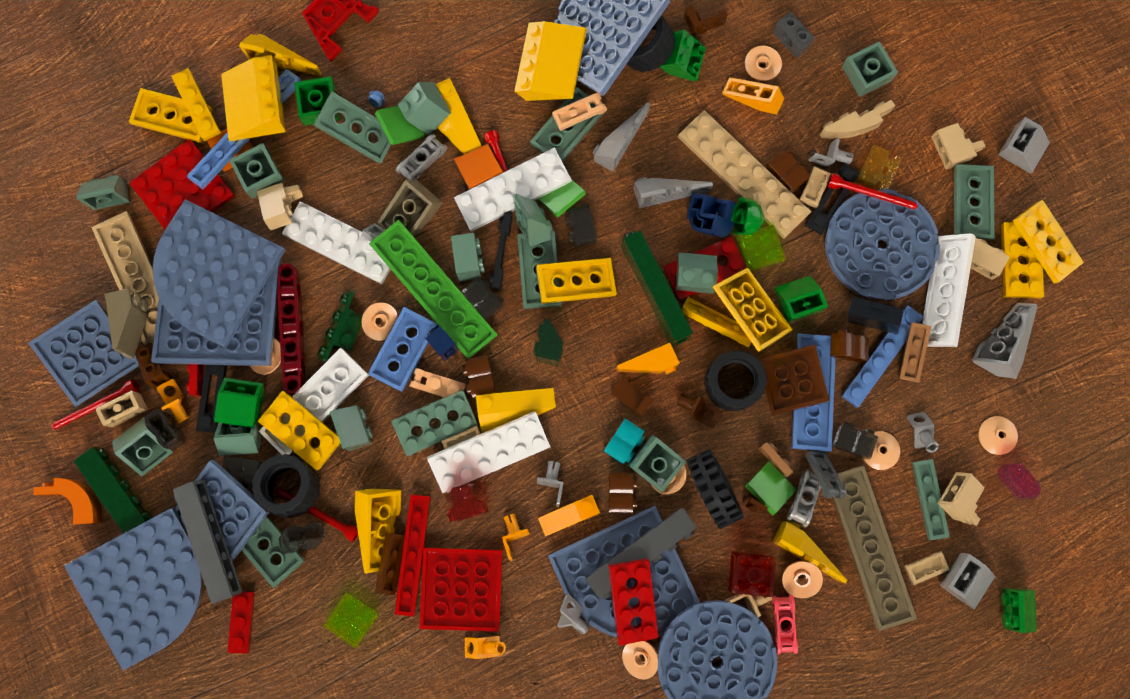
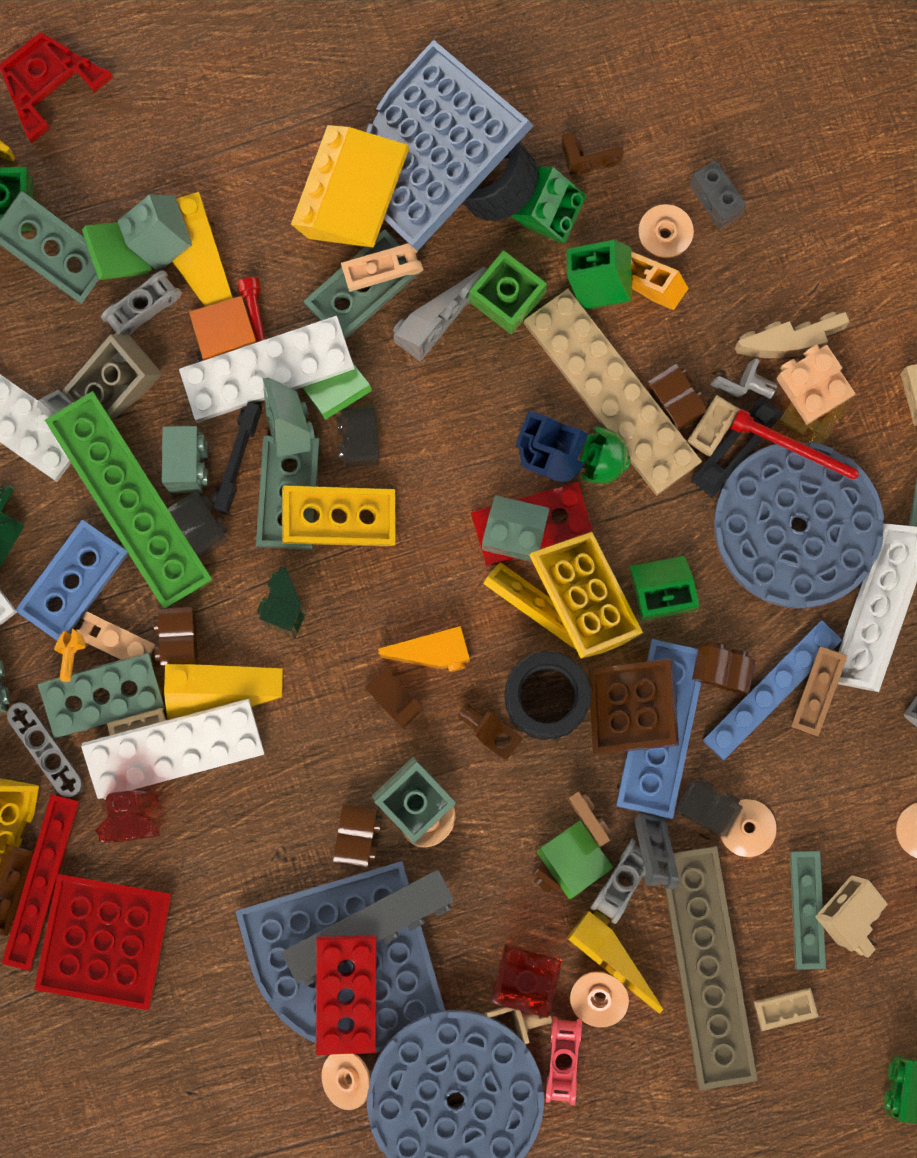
camera: 10 degrees right, 0 degrees up
(376, 99) = (89, 207): medium blue plate -> none
(387, 320) = (57, 532): light nougat dish -> none
(403, 463) = (49, 747): none -> light grey beam
(407, 392) = (68, 645): none -> light orange bar
(441, 343) = (127, 581): dark blue brick -> none
(484, 647) = (123, 1030): light orange bracket -> none
(514, 533) = (191, 872): light orange bracket -> none
(551, 479) = (258, 801): light grey bracket -> none
(568, 515) = (276, 857): light orange slope -> none
(571, 616) = (255, 1002): light grey bracket -> none
(624, 441) = (372, 762): teal brick -> none
(656, 288) = (452, 544): dark green brick -> none
(660, 190) = (484, 400): light grey wedge -> none
(665, 117) = (507, 292): none -> bright green brick
(714, 489) = (488, 848): black tyre -> none
(725, 96) = (600, 274): none -> green slope
(761, 248) = (619, 506): clear neon green plate -> none
(869, 69) = (821, 261): sand green brick -> none
(875, 315) = (767, 628): black container -> none
(879, 149) = (815, 383): none -> light nougat plate
(923, 432) = (812, 810): light grey bracket -> none
(968, 579) = (843, 1036): light grey slope -> none

